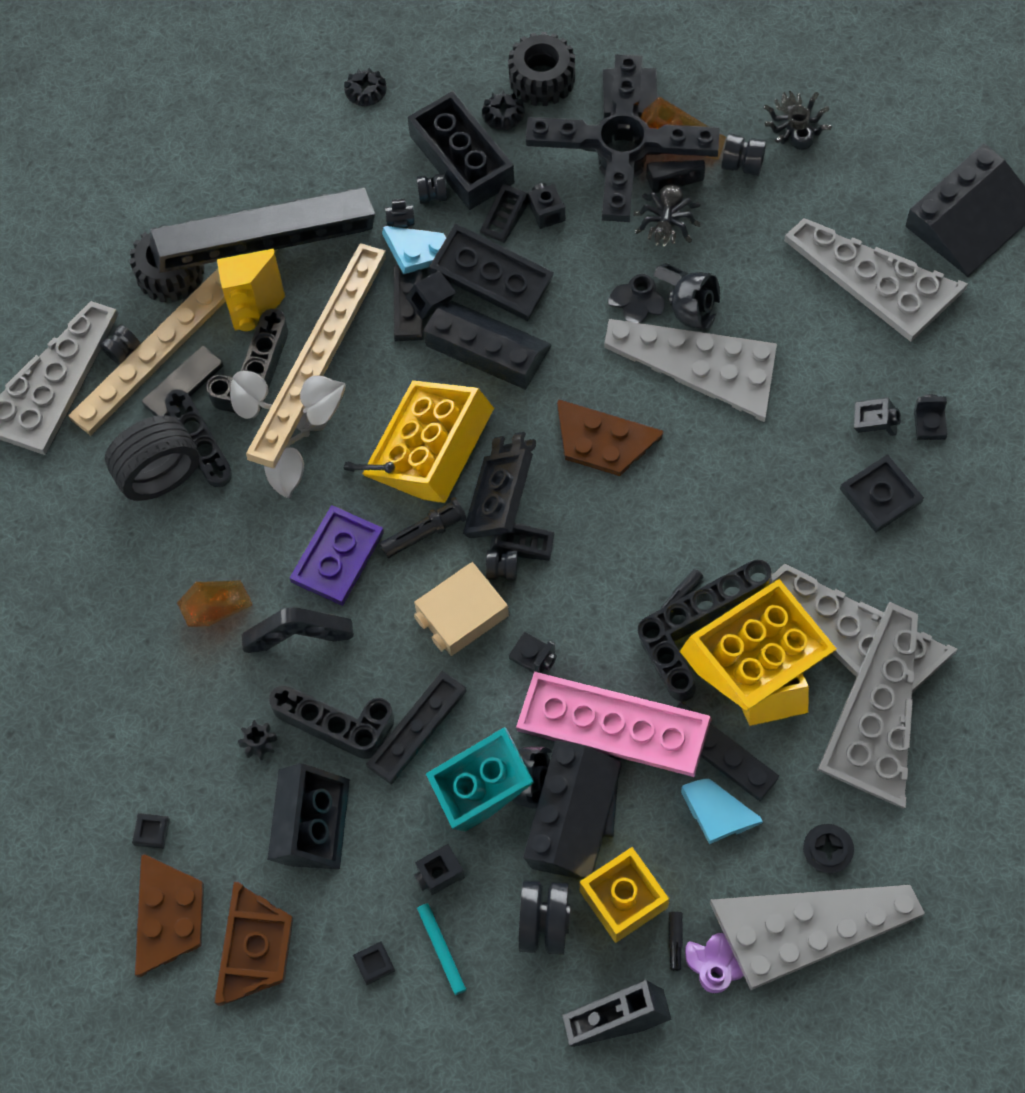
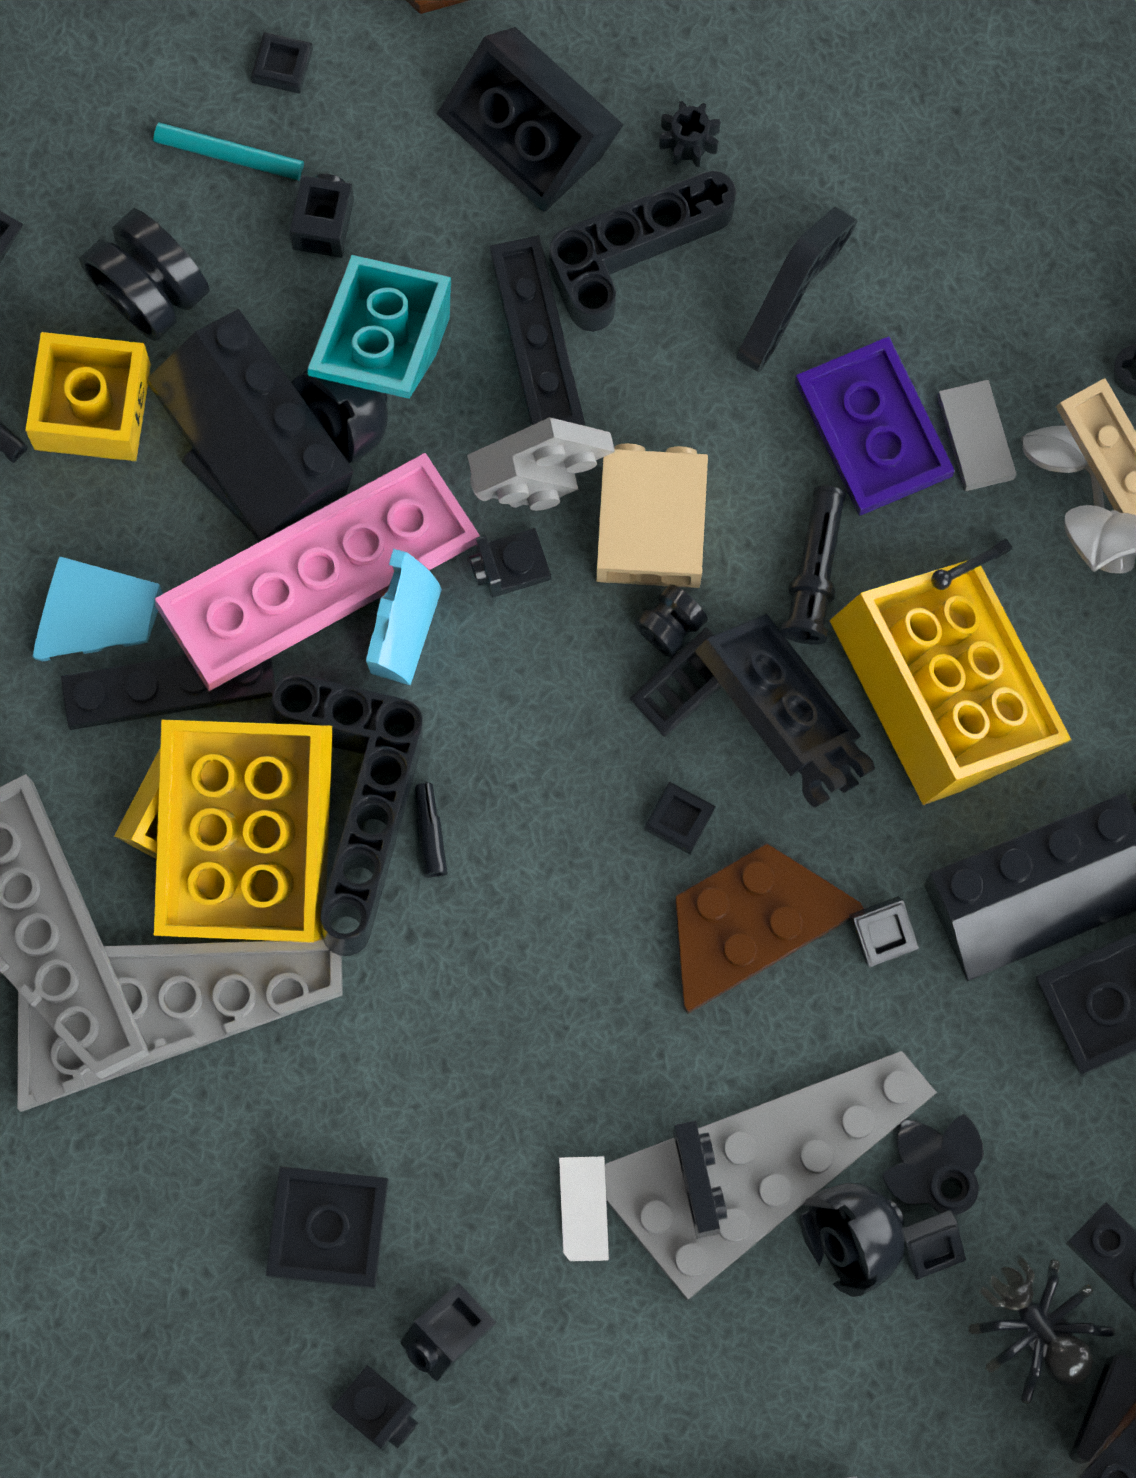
camera: 125 degrees right, 10 degrees up
(212, 602) = (935, 222): clear orange slope -> none
(304, 514) = (976, 435): none -> light grey tile
(484, 665) = (537, 463): none -> light grey plate
(561, 385) = (884, 931): none -> tile
(584, 499) = (679, 818): none -> black tile
(611, 670) = (403, 619): none -> medium azure slope
(735, 359) = (694, 1156): none -> black plate
(779, 408) = (584, 1208): none -> white sticker

